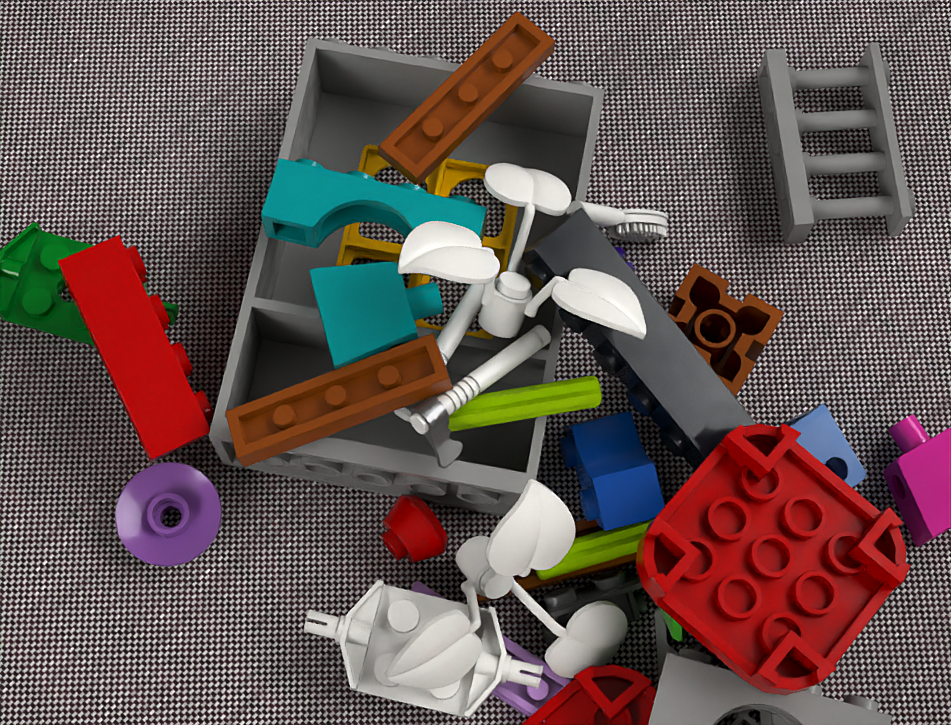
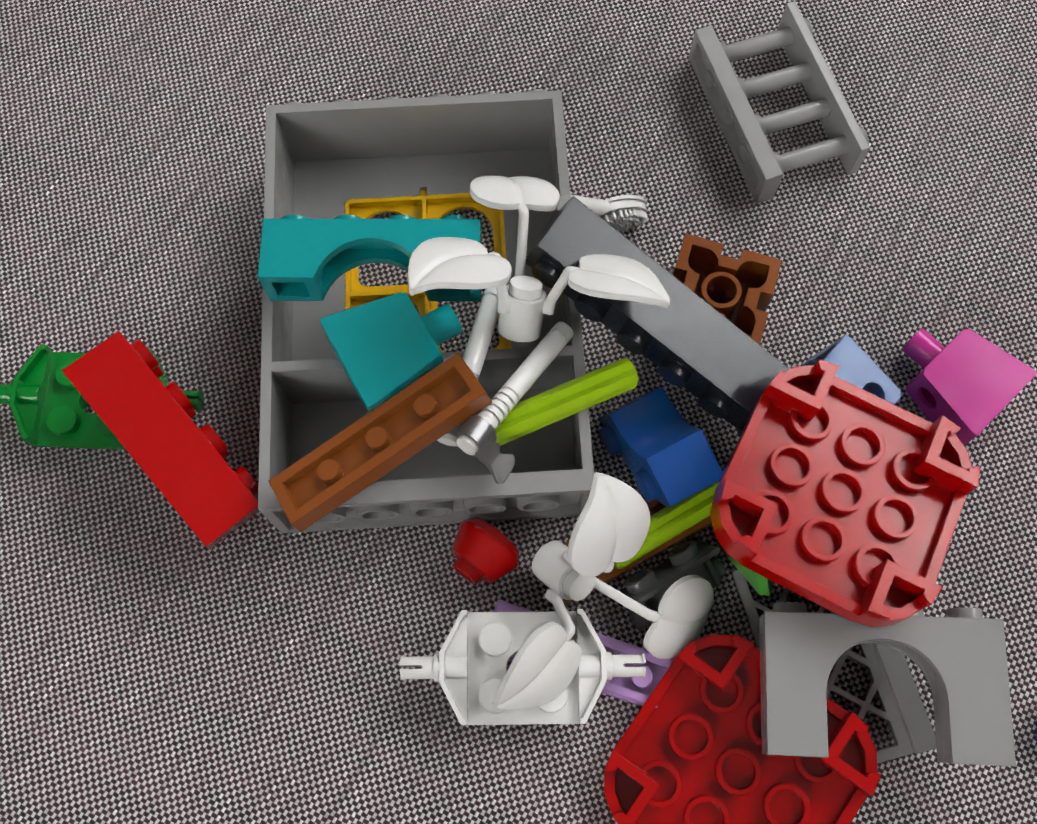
camera: 10 degrees left, 0 degrees up
(155, 493) = (213, 593): medium lavender dish -> none
(466, 98) = (432, 125): dark orange plate -> none

